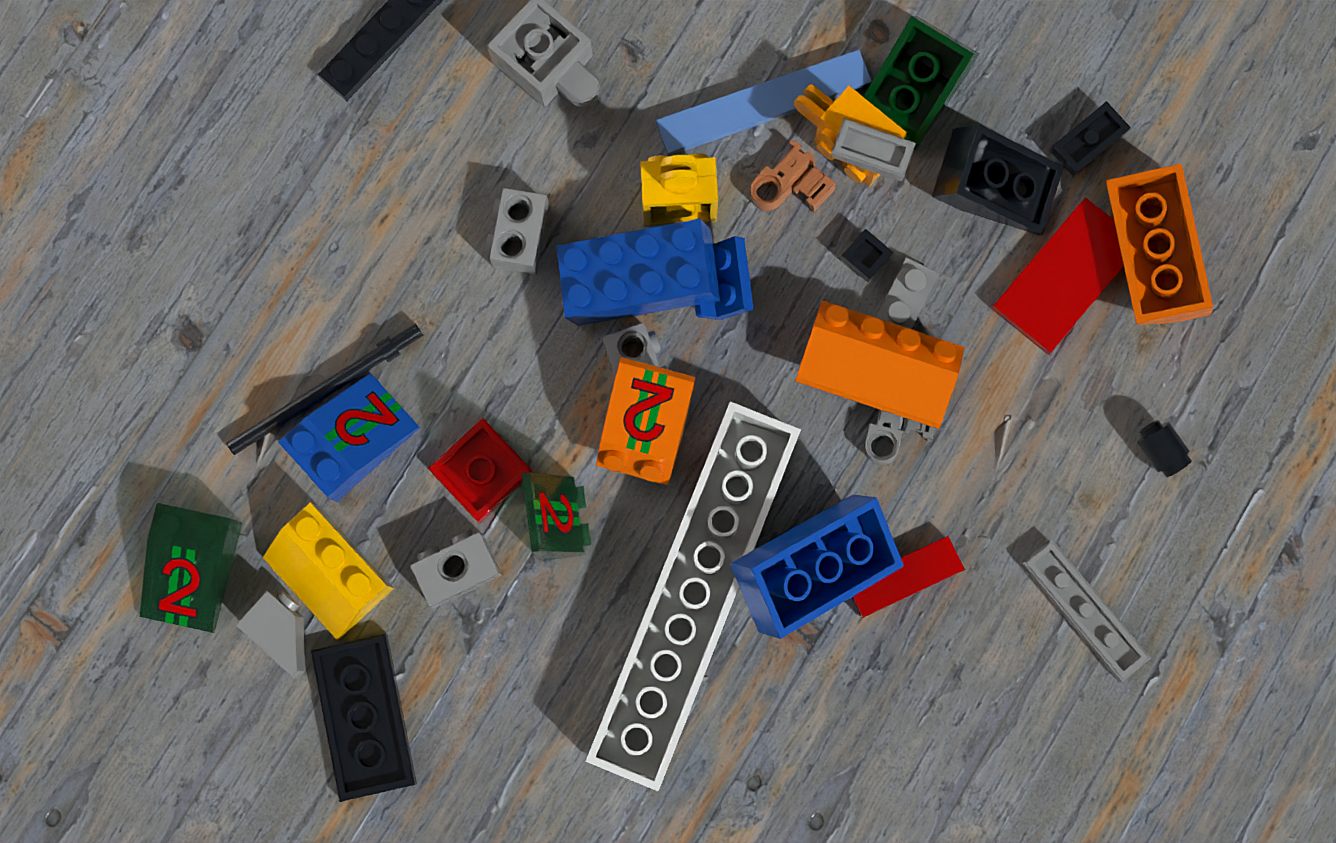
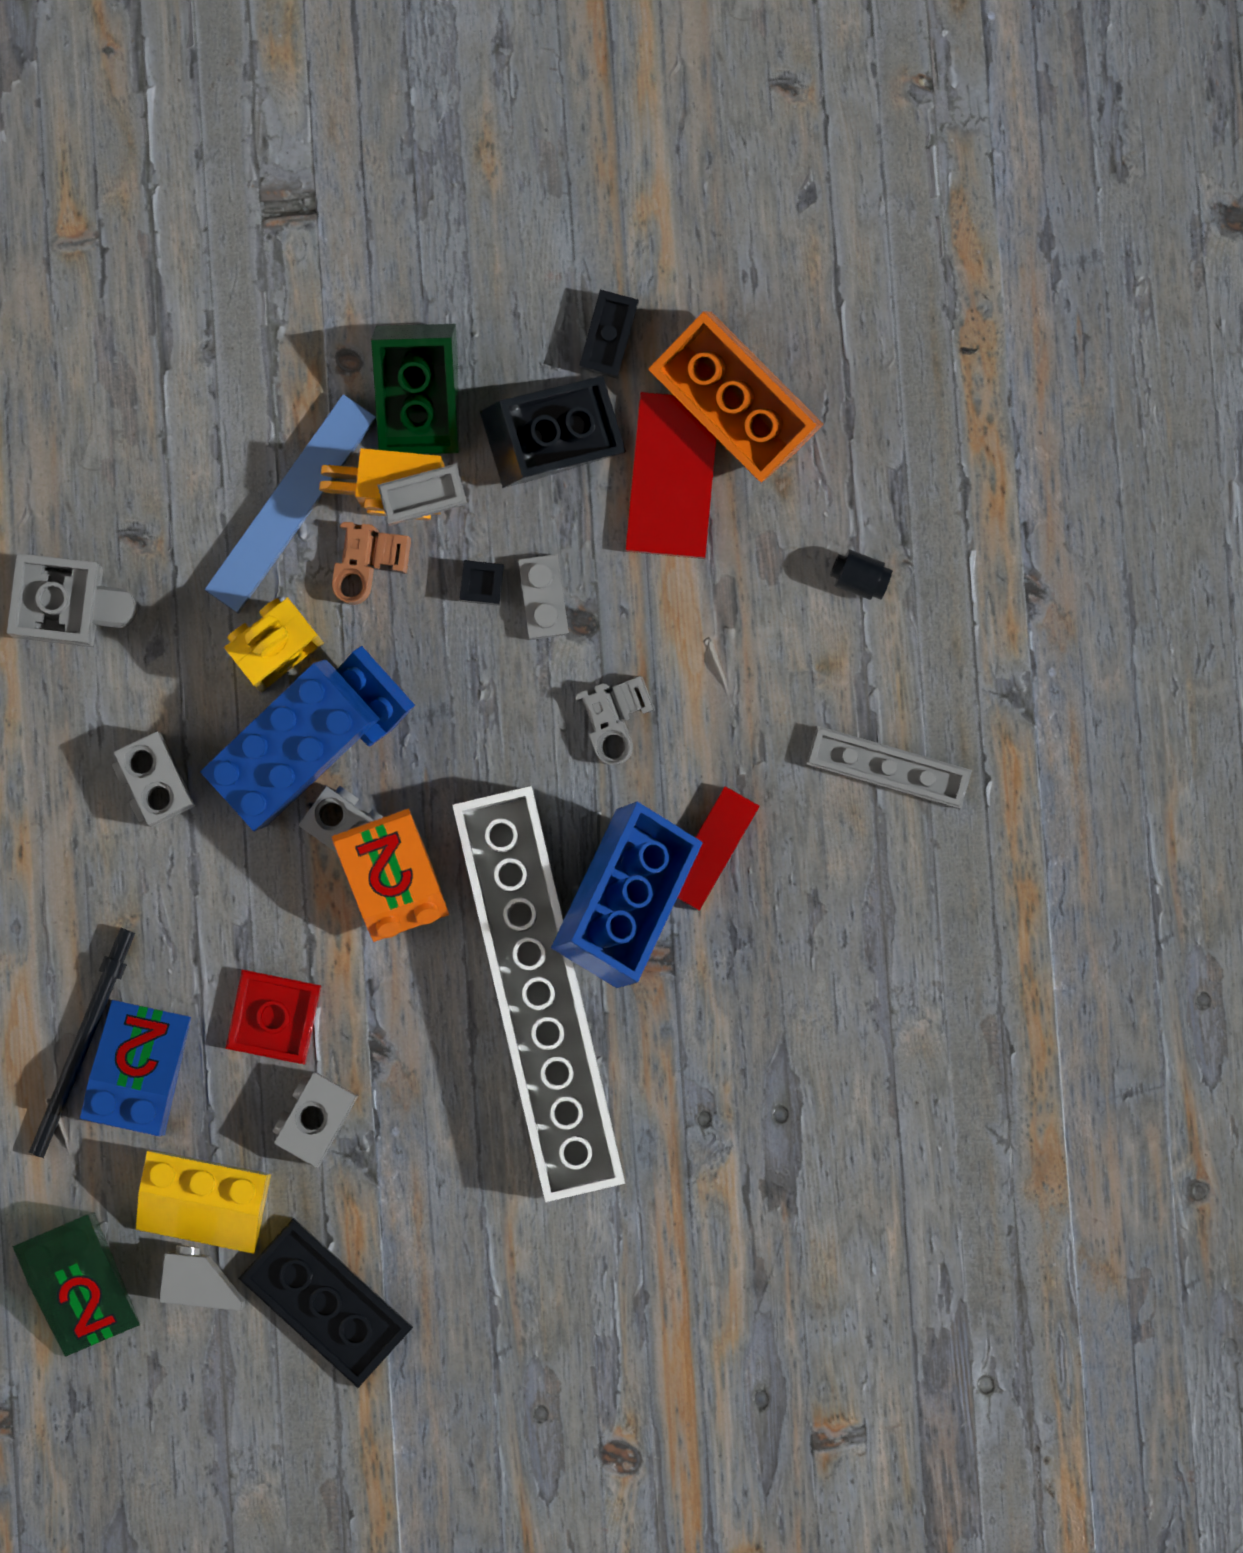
camera: 30 degrees left, 5 degrees up
(555, 516) = (371, 1011): clear green slope -> none
(880, 364) = (560, 677): orange slope -> none

